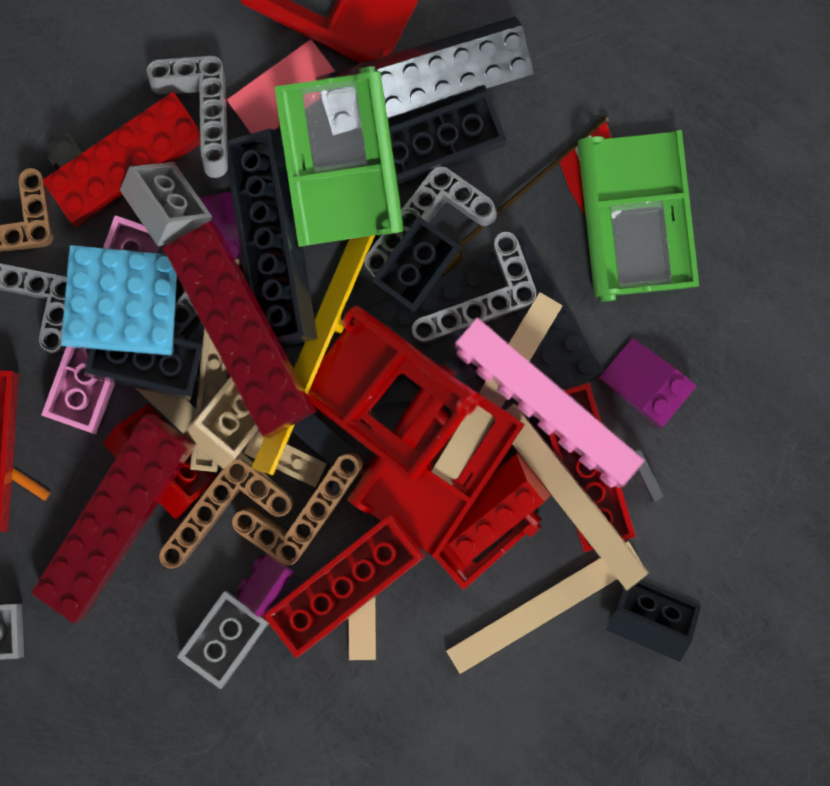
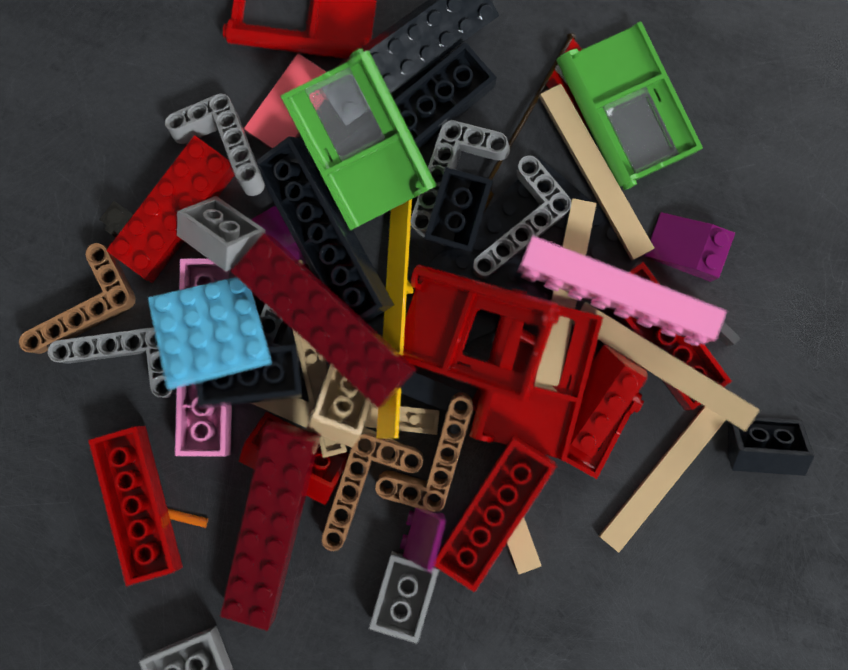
camera: 20 degrees left, 0 degrees up
(577, 272) = (596, 172): none -> tan tile

